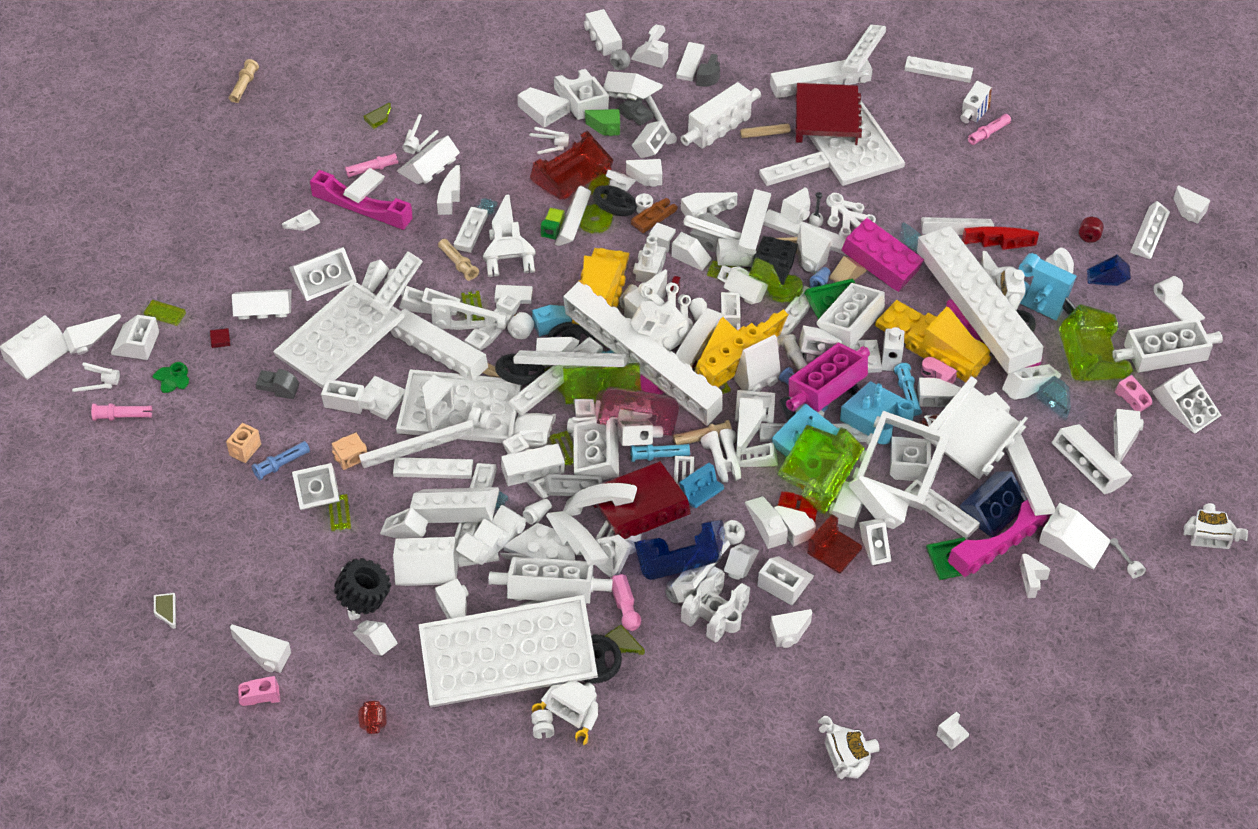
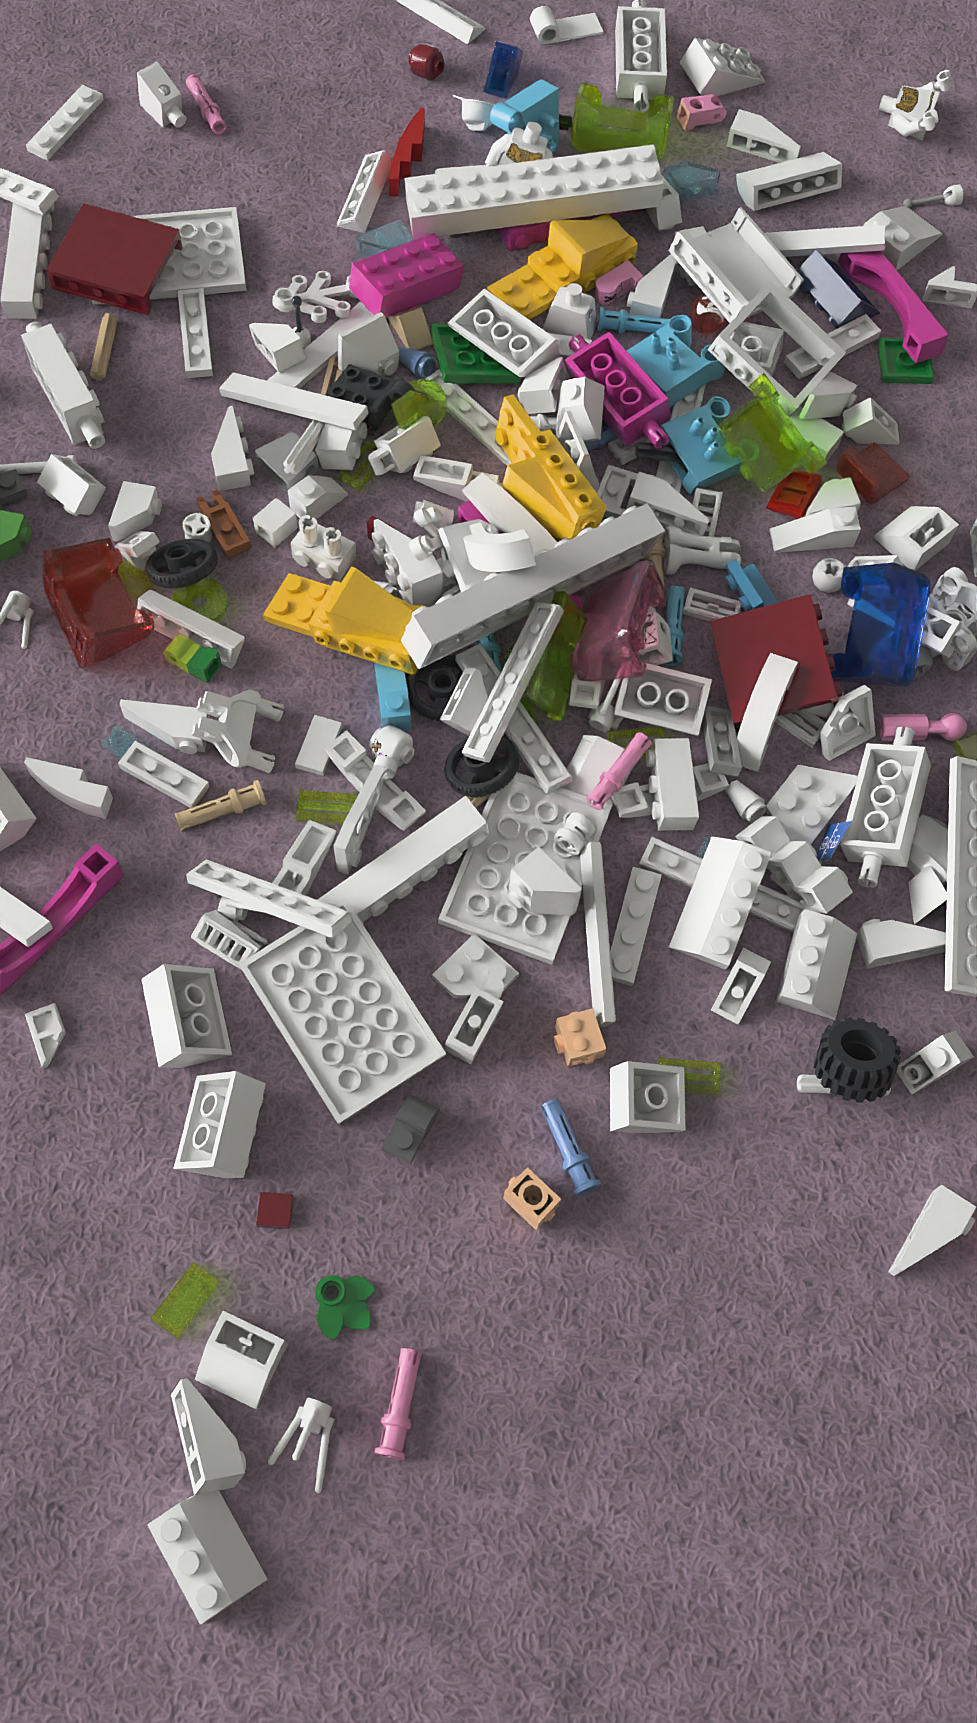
camera: 80 degrees left, 15 degrees up
(166, 608) = (827, 1375): olive tile -> none
(522, 428) = (612, 780): none -> bright pink pin
(578, 537) = (810, 757): white slope -> none
(799, 353) = (585, 402): none -> white slope

